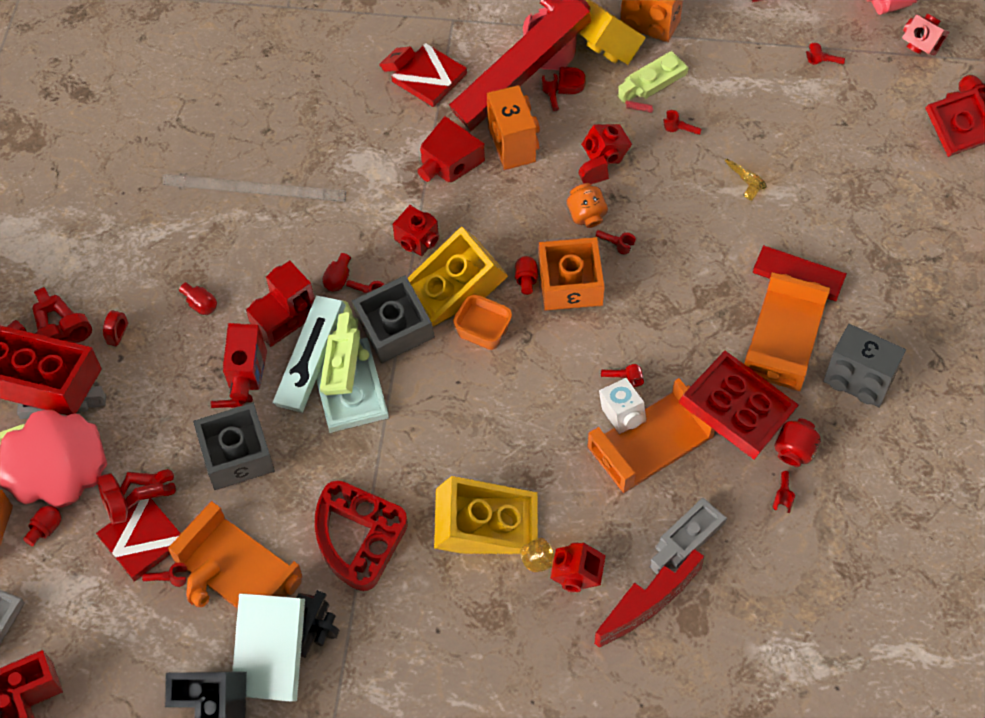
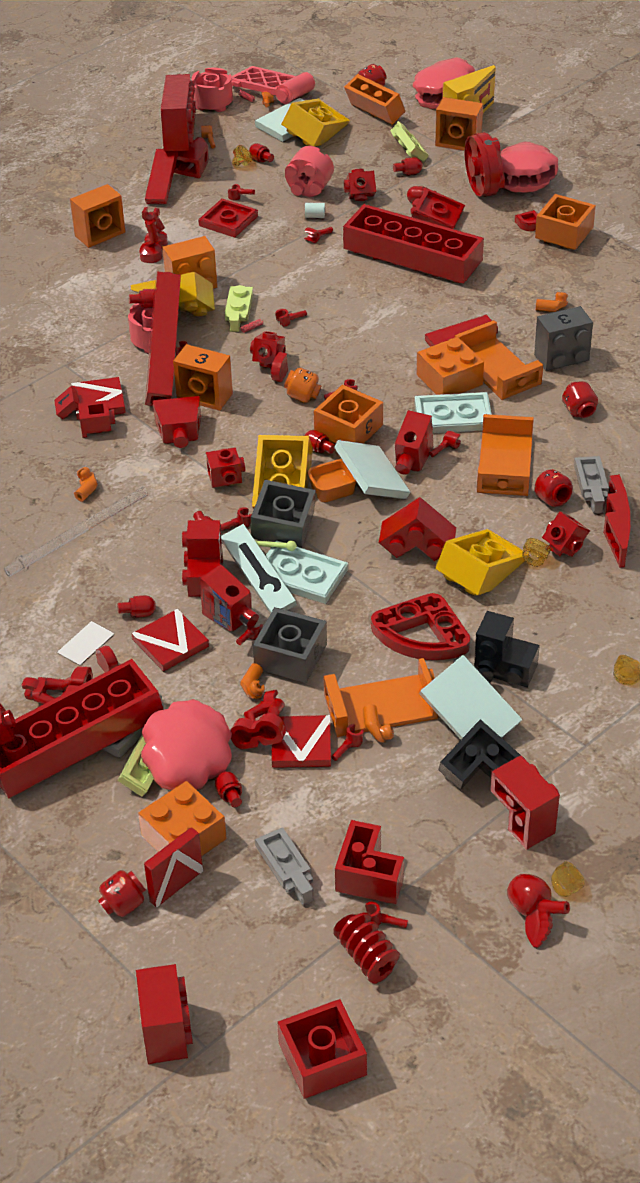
camera: 50 degrees left, 15 degrees down
(133, 294) = (85, 643): none -> white sticker
(177, 449) = (250, 682): none -> orange arm
(181, 351) = (170, 640): none -> red tile
(316, 151) = (88, 484): none -> orange arm
(341, 357) = (285, 552): yellowish green hinge -> none
(365, 619) = (503, 655): none -> black brick
(394, 92) = (95, 417): none -> red brick
(466, 439) = (416, 526): none -> red brick
(521, 343) = (372, 469): none -> light aqua tile
(571, 80) = (192, 337): red tile -> none
(582, 351) = (413, 453): none -> red torso
(622, 405) = (472, 452): white brick -> none
(641, 509) = (553, 488): none -> red head
(673, 345) = (455, 411): none -> light aqua tile
(728, 301) = (450, 367): none -> orange brick
(738, 404) = (531, 401): red plate -> none
(754, 181) = (370, 311): clear yellow bar -> none
(784, 495) = (610, 427): red hand -> none
(852, 29) = (314, 210): none -> light aqua hinge
(881, 141) = (413, 243): none -> red brick
(929, 319) = (552, 305): none -> orange arm

